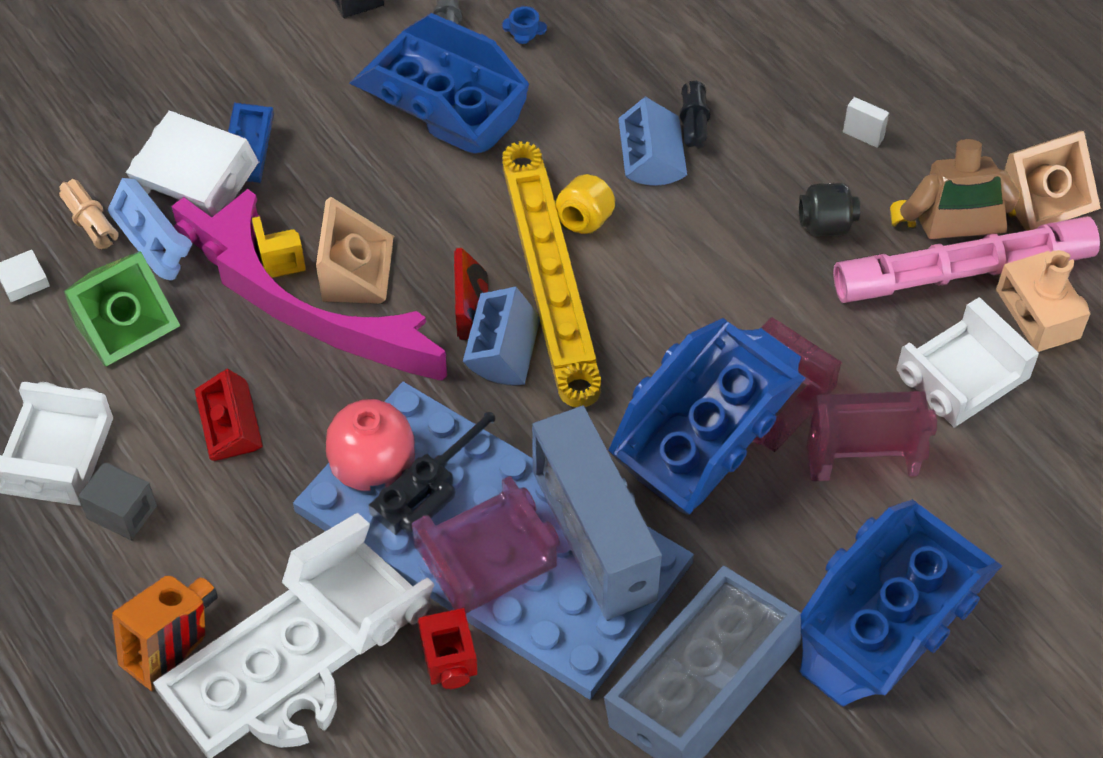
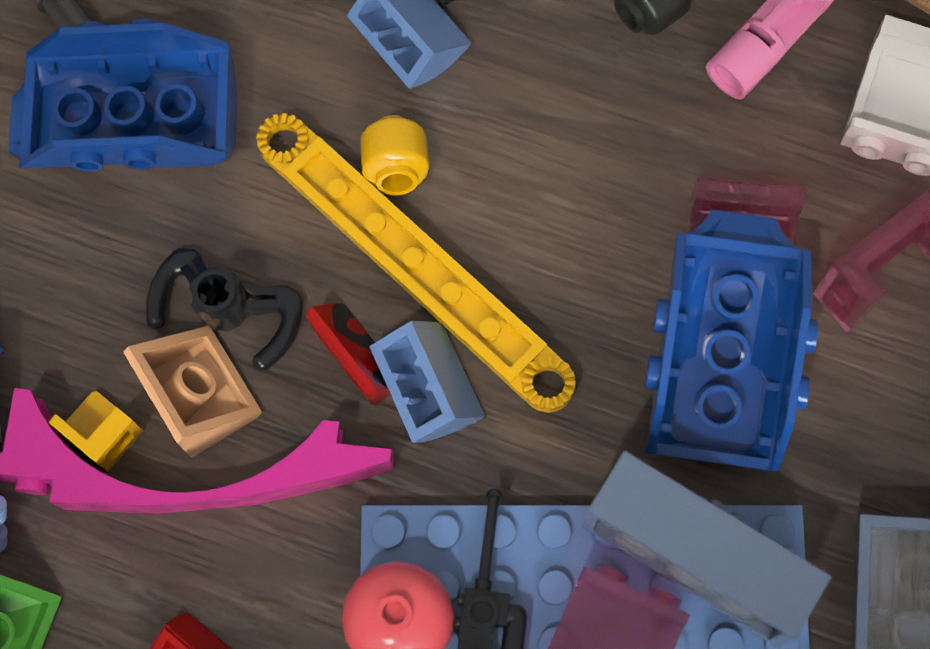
camera: 30 degrees left, 20 degrees up
(413, 224) = (211, 286): none -> black piece

